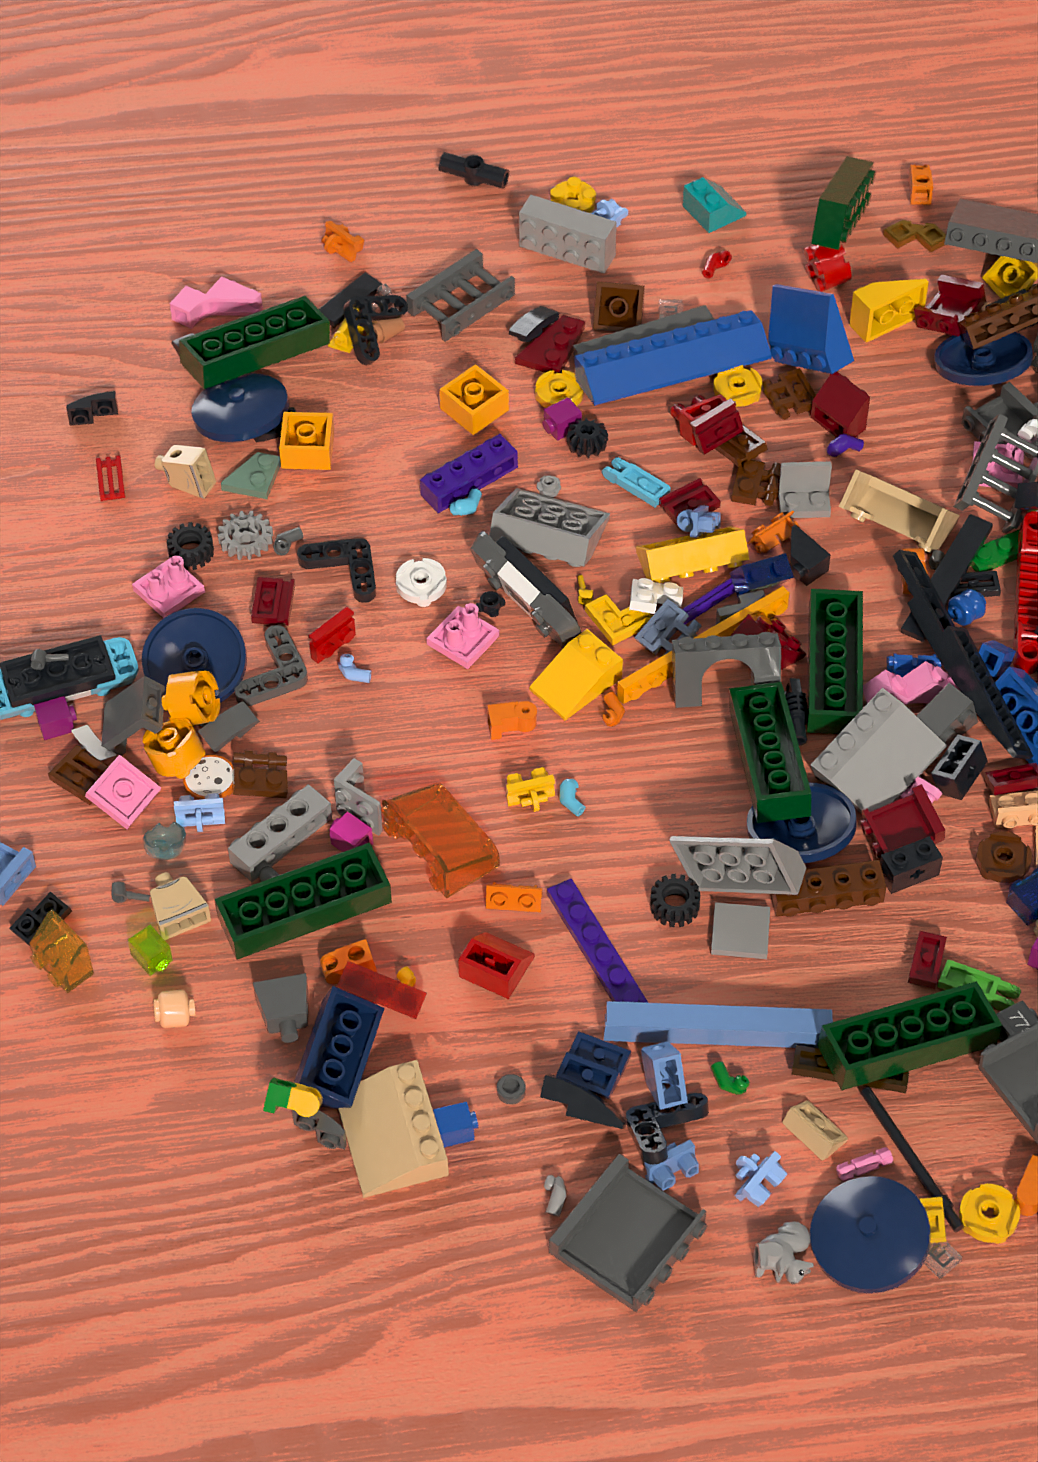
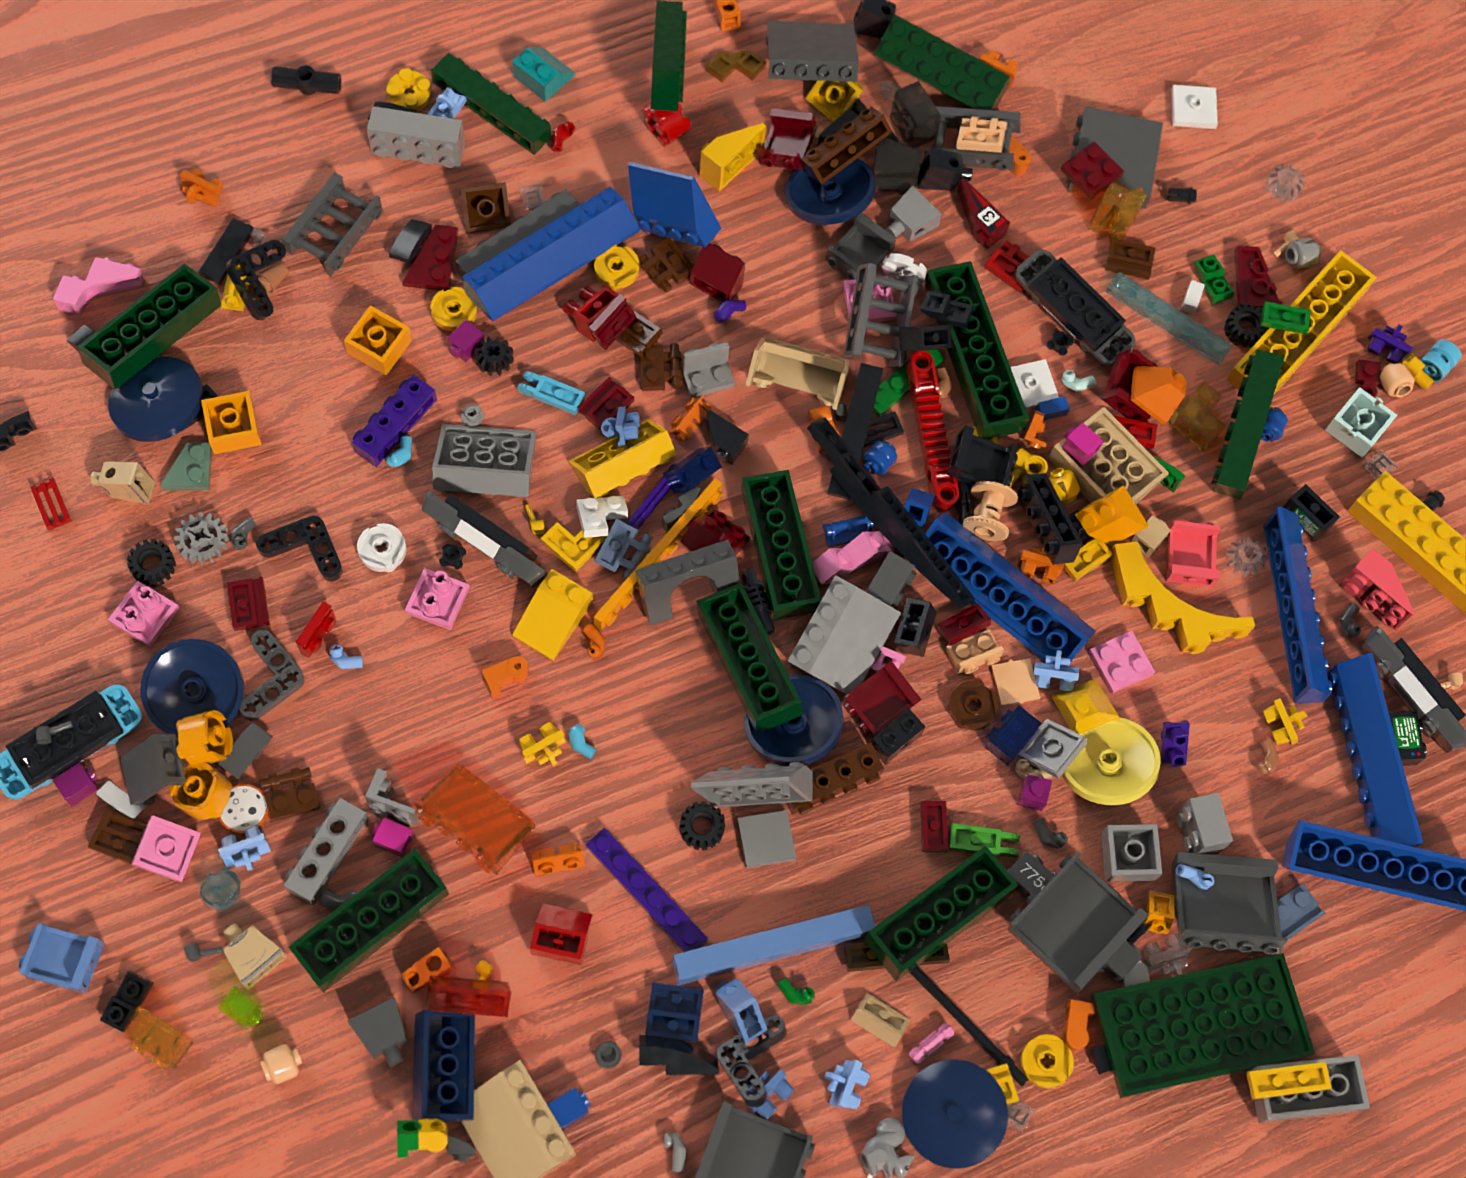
camera: 25 degrees left, 15 degrees up
(654, 223) = (492, 103): none -> dark green brick

